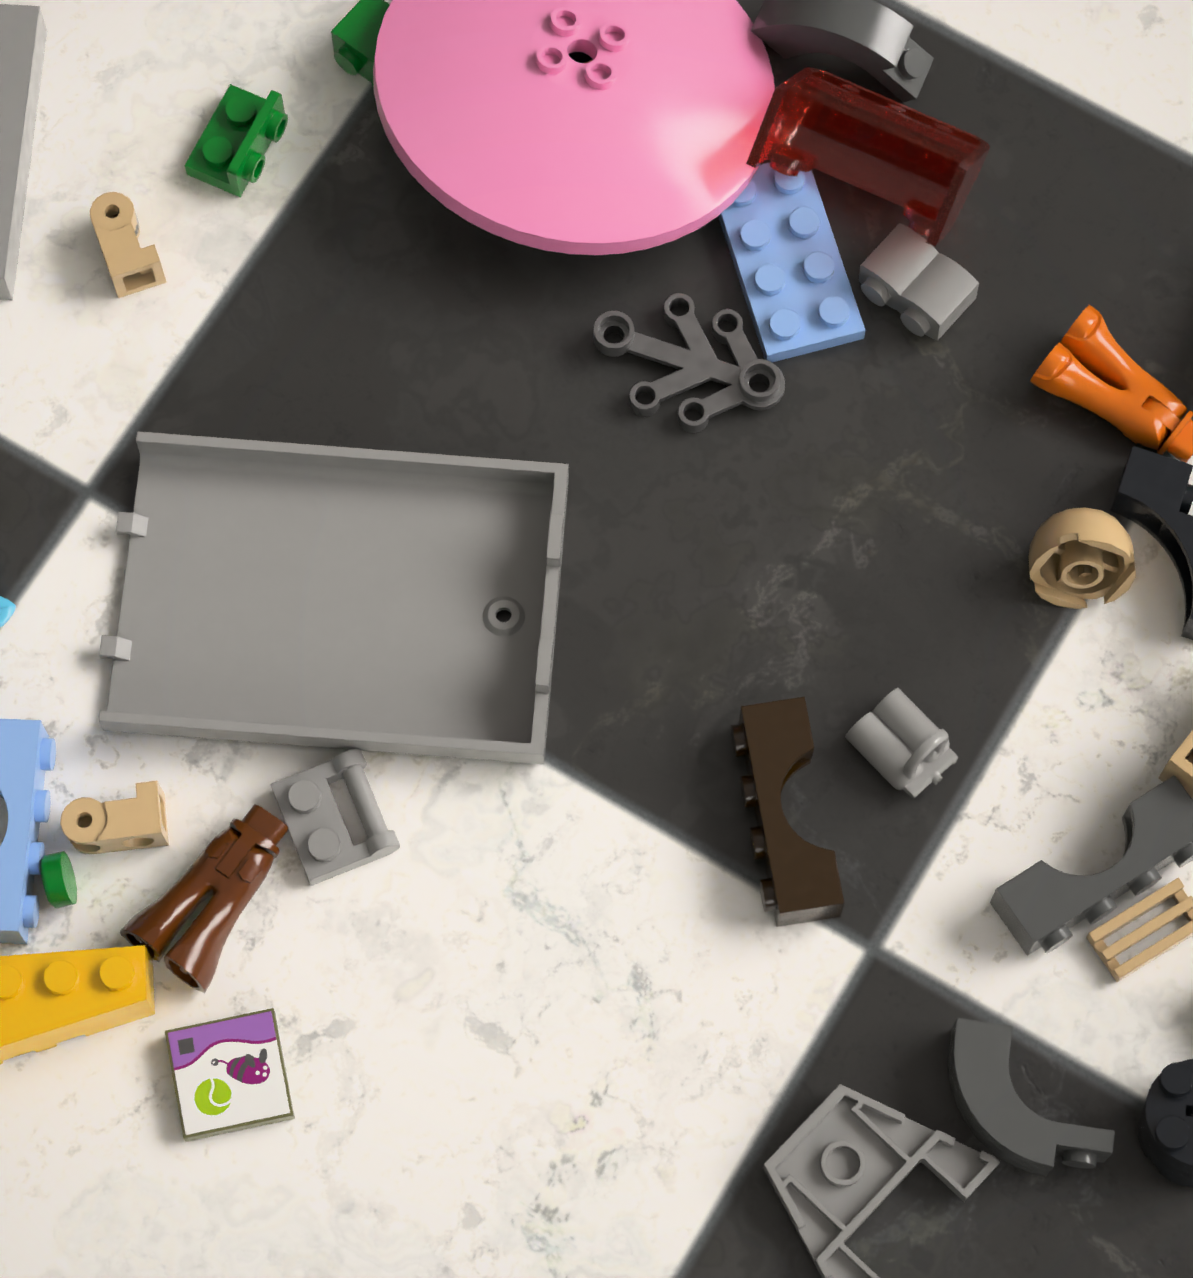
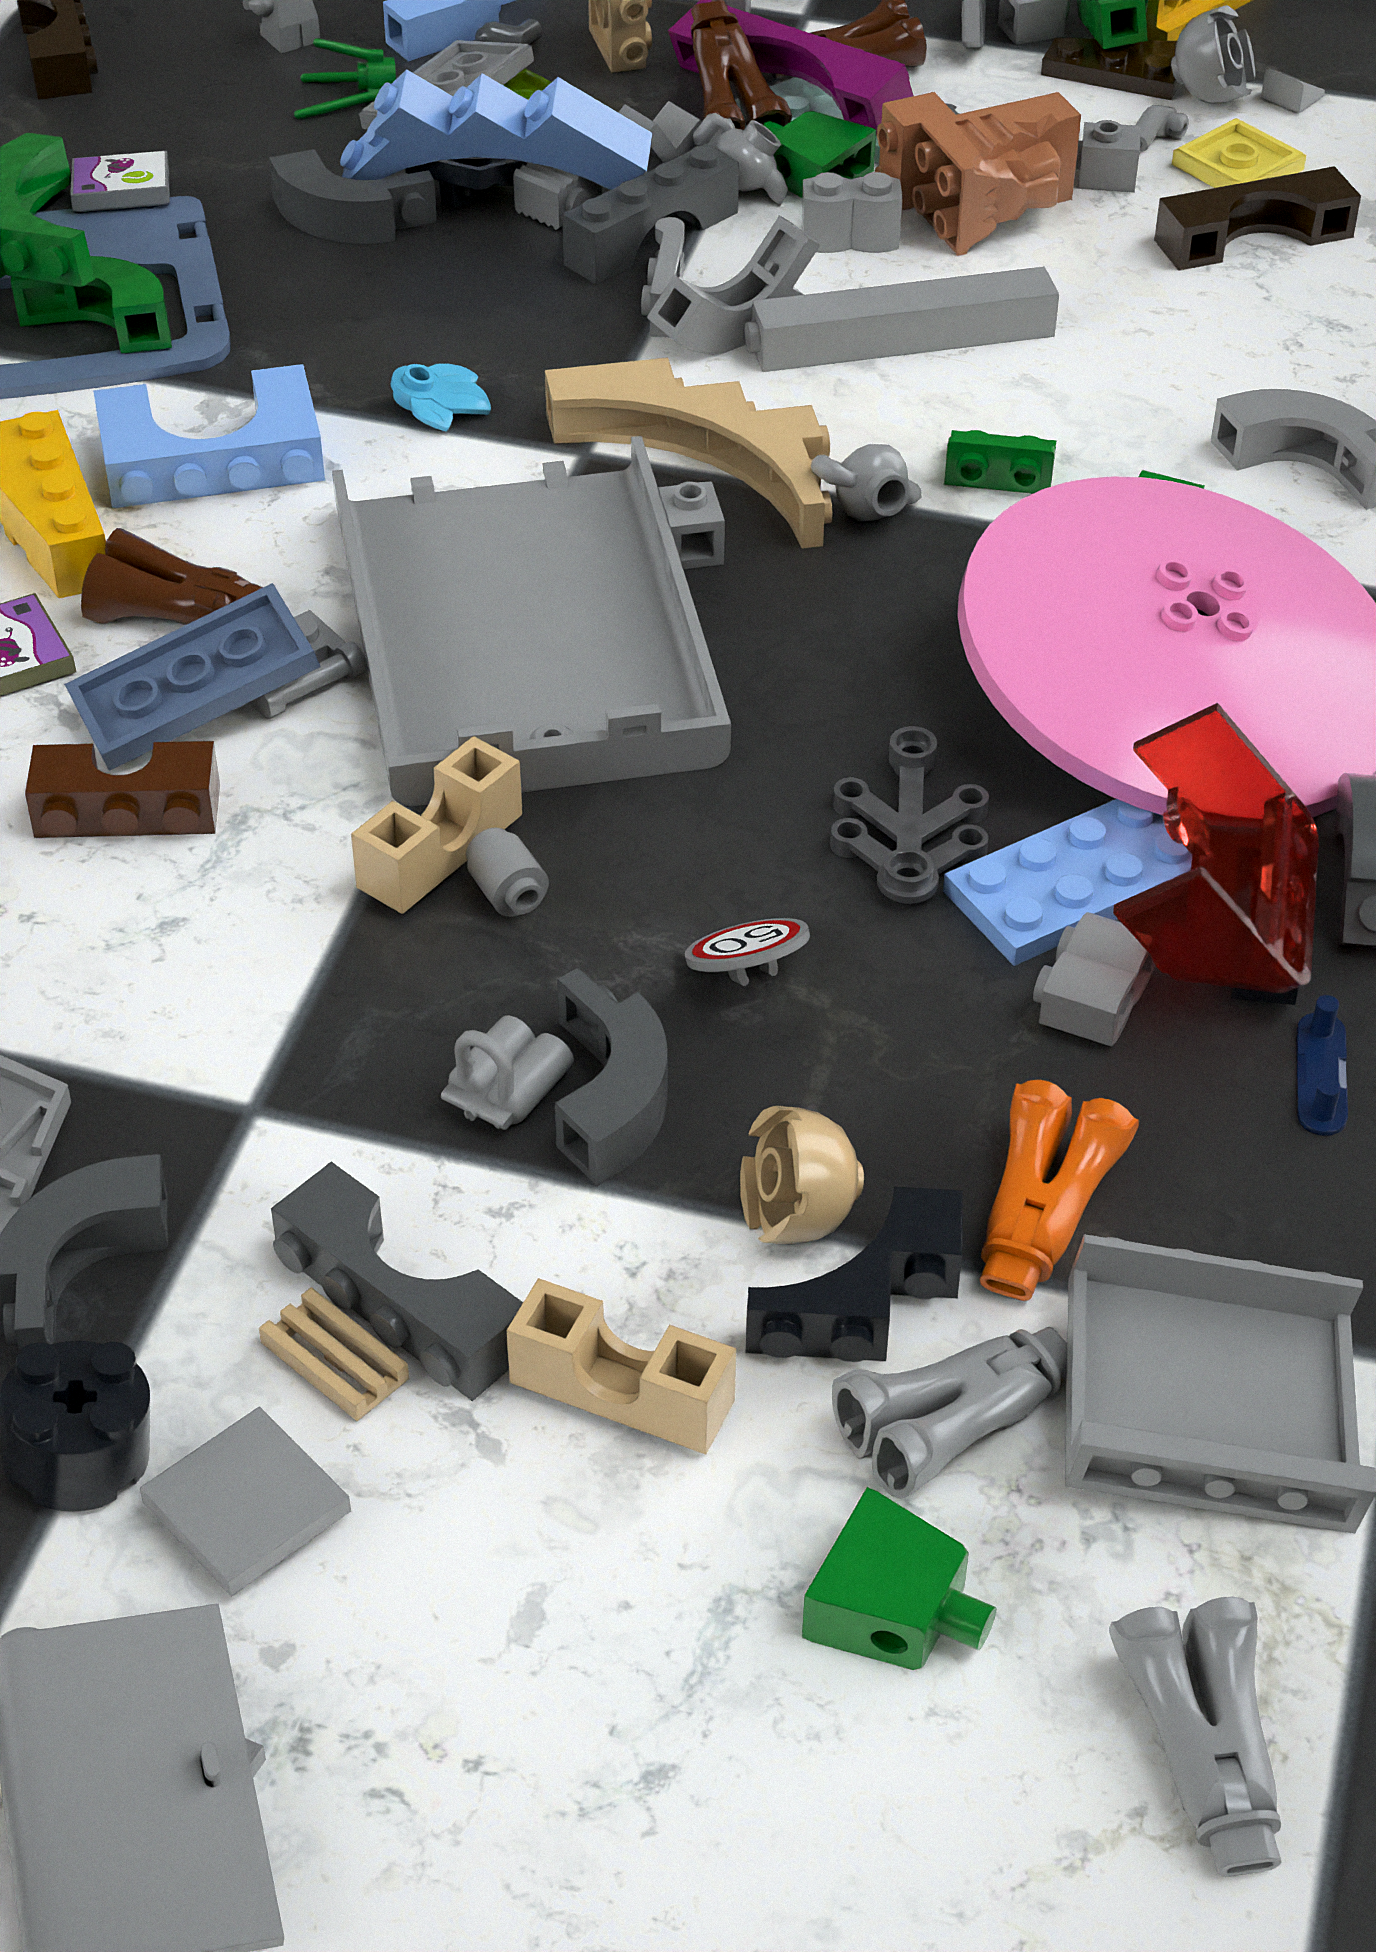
camera: 75 degrees right, 25 degrees down
(58, 879) = (173, 498): green tile -> none
(112, 361) = (704, 422): none -> tan arch
(118, 233) = (850, 405): tan leg -> none
(118, 823) = (244, 532): tan leg -> none
(257, 416) = (695, 523): none -> light grey brick
(258, 257) = (869, 481): none -> light grey piece
(357, 901) = (192, 676): none -> sand blue plate
(474, 1035) = (166, 797): none -> reddish brown arch
(634, 753) = (409, 854): none -> tan arch
(678, 690) = (506, 872): none -> light grey brick
(800, 876) = (454, 961): dark brown arch -> none
(818, 525) = (747, 946): none -> piece
(937, 645) = (623, 1107): none -> dark grey arch
(1035, 166) = (1322, 1069): none -> dark blue piece

